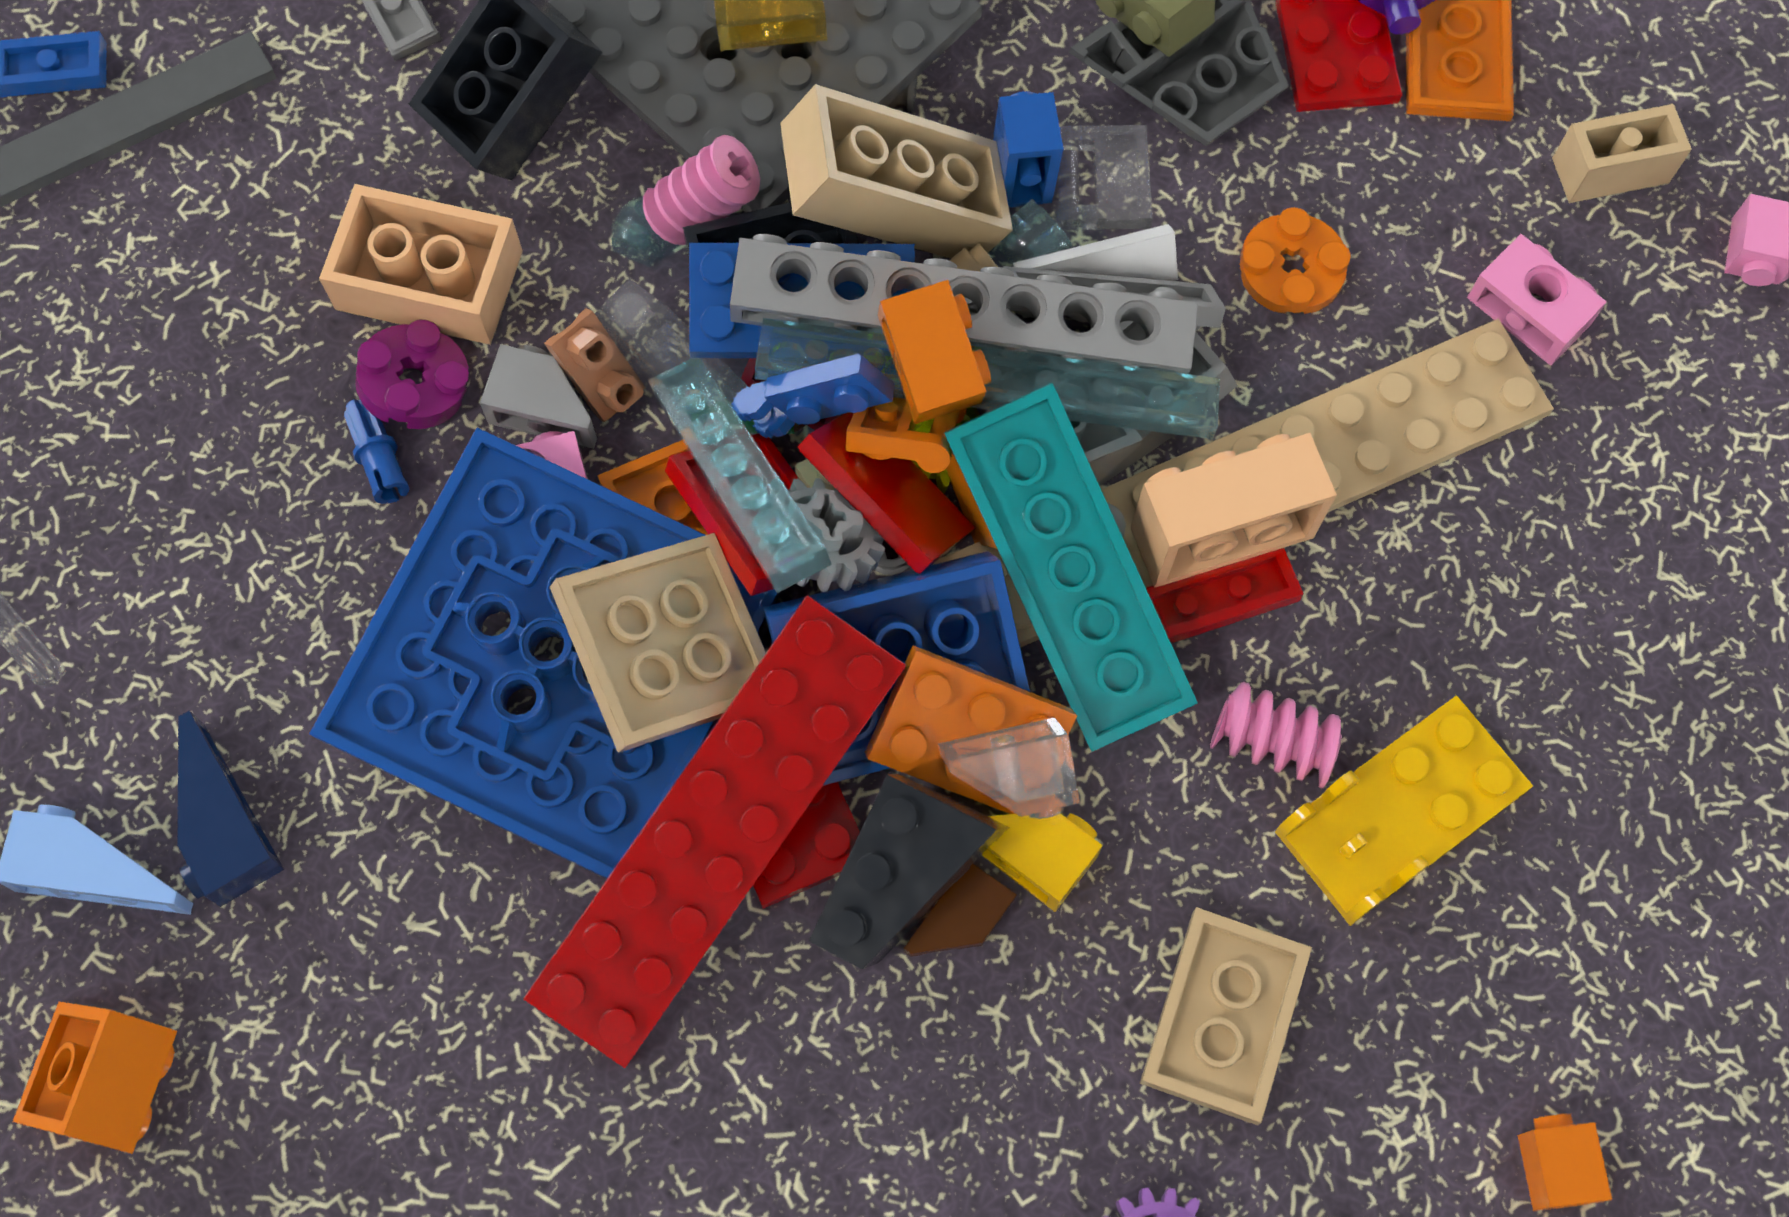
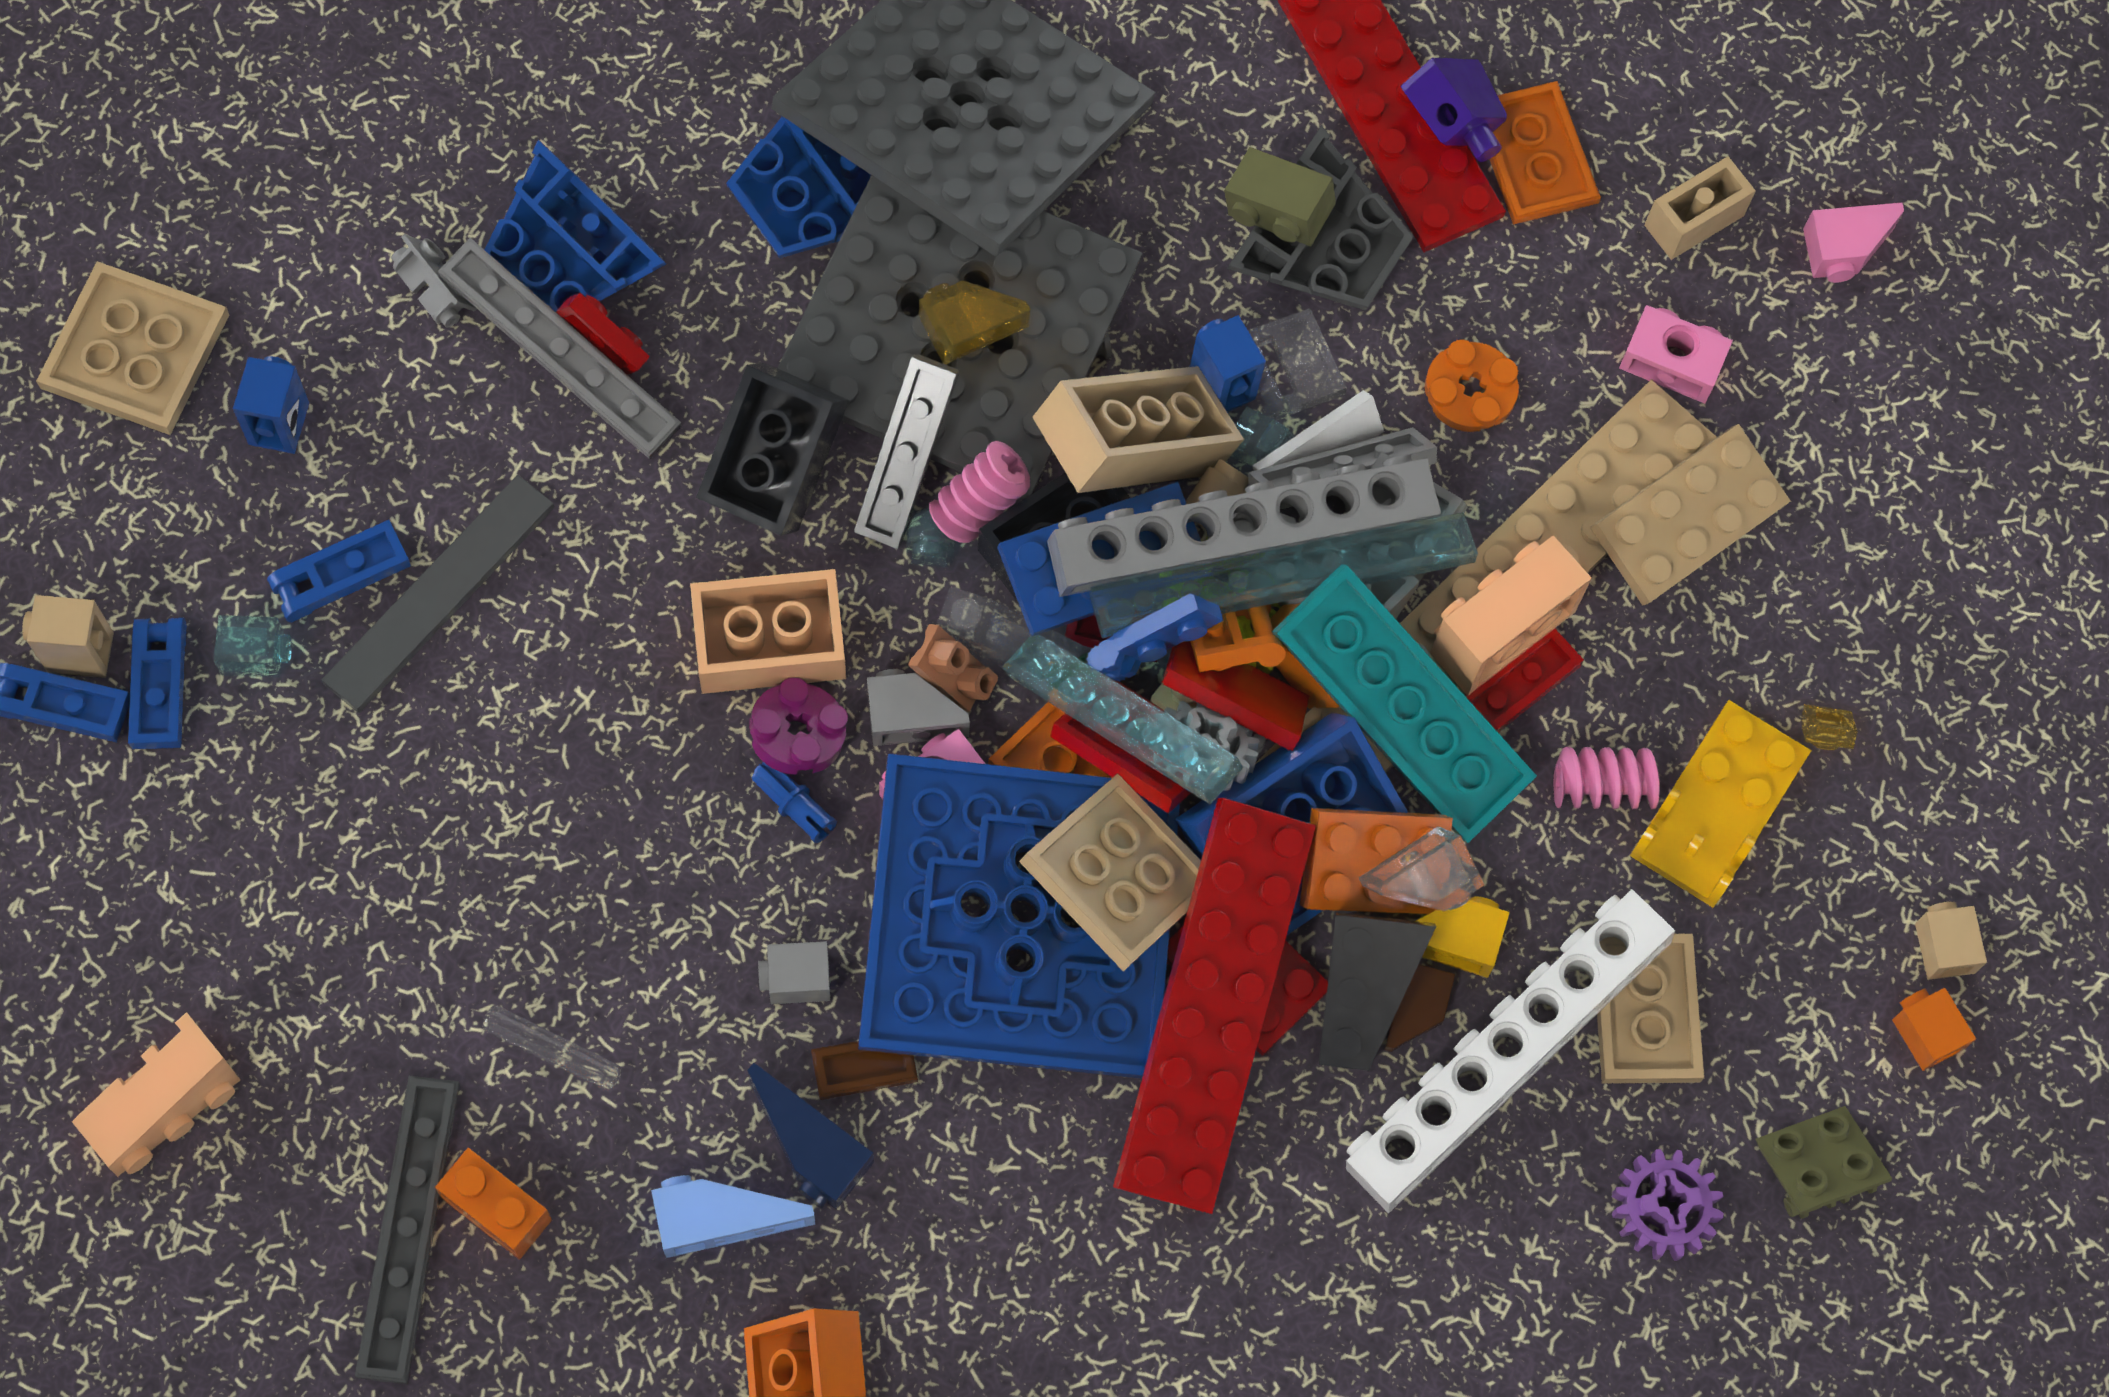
camera: 25 degrees left, 0 degrees up
(290, 631) = (796, 972): none -> light grey brick
(301, 760) = (848, 1071): none -> reddish brown tile
(643, 121) = (906, 450): none -> plate
(933, 351) = (1244, 571): orange brick -> none
(1229, 897) = (1391, 1179): none -> white brick
(1488, 475) = (1690, 514): none -> tan plate
(1563, 767) = (1828, 727): none -> clear yellow plate
(1622, 1067) = (1950, 941): none -> tan brick

